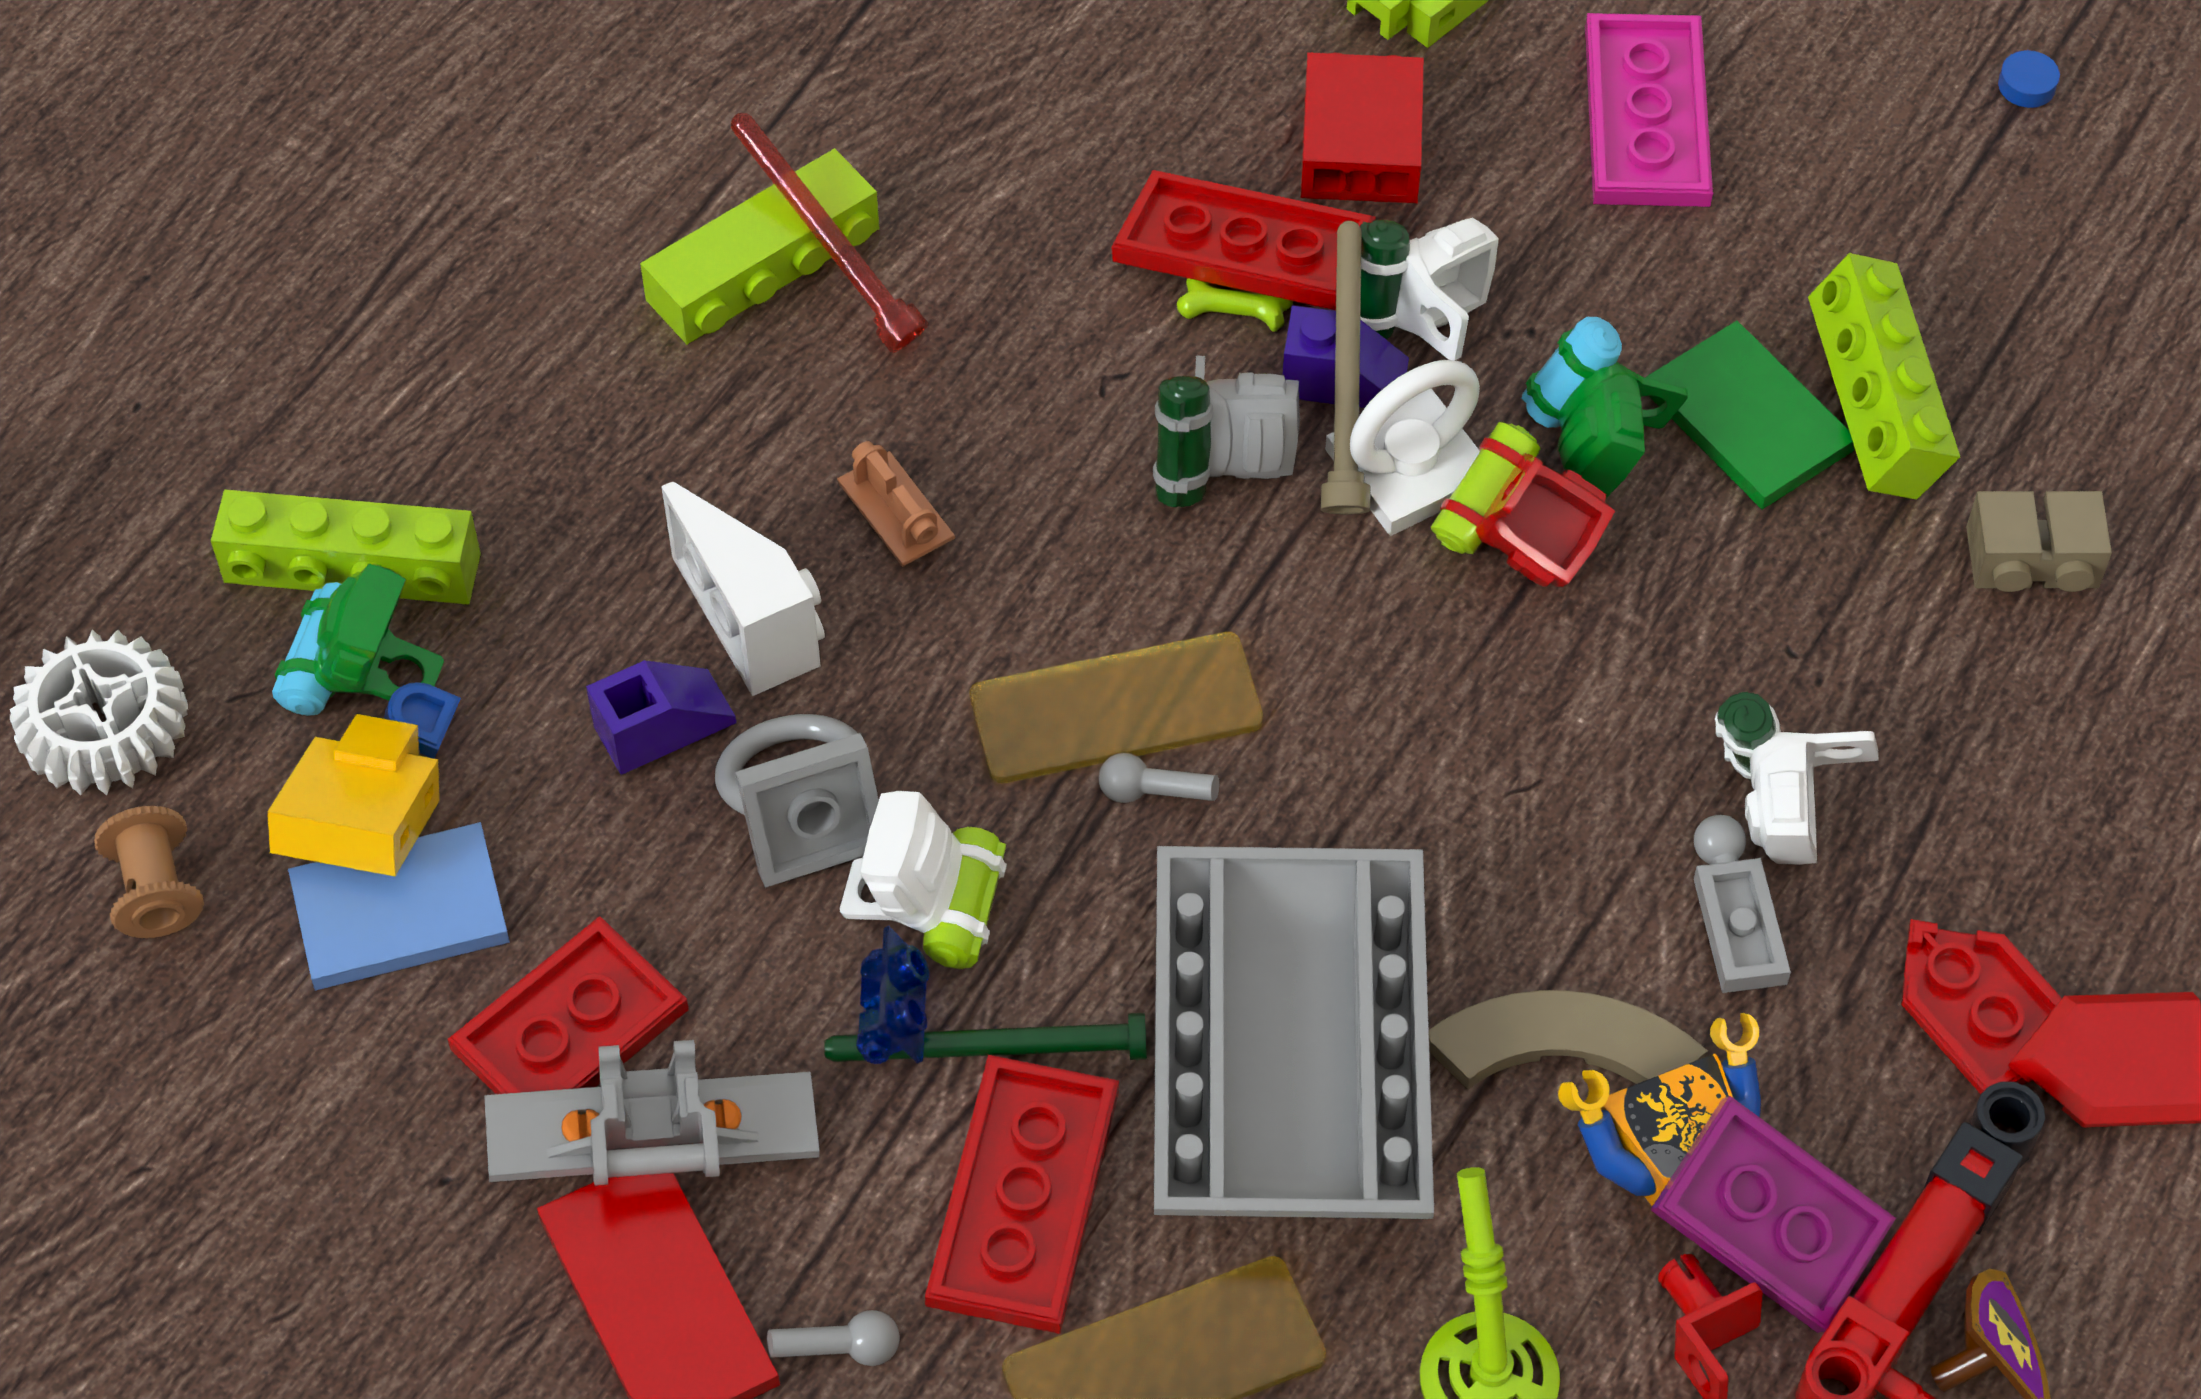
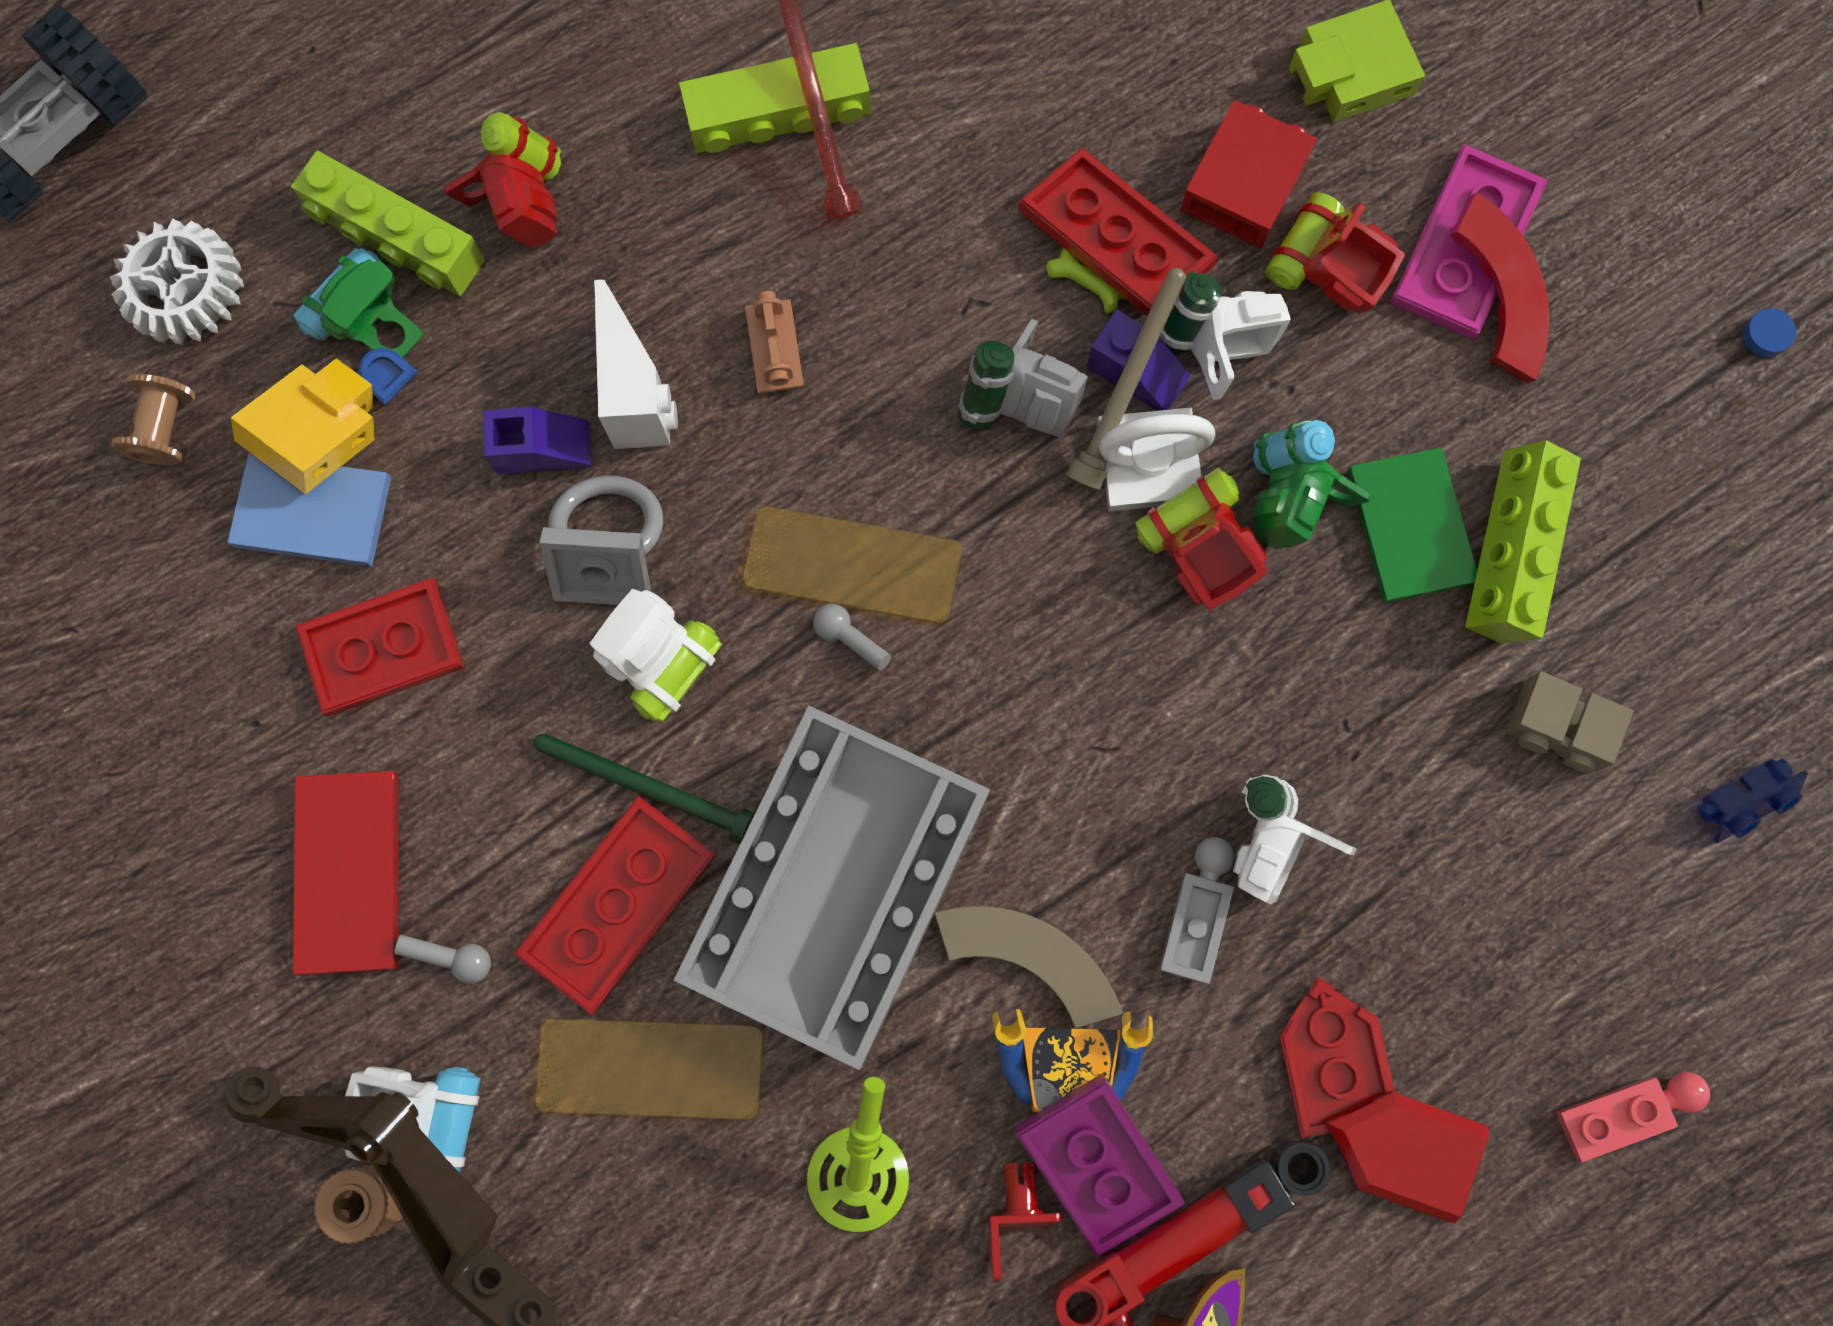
camera: 25 degrees right, 20 degrees up
(489, 428) = (514, 179): none -> red piece
(579, 1128) = (395, 737): light grey piece -> none
(893, 1000) = (596, 727): clear blue hinge -> none
(1509, 166) = (1337, 254): none -> red piece
(1747, 147) = (1519, 284): none -> red tile

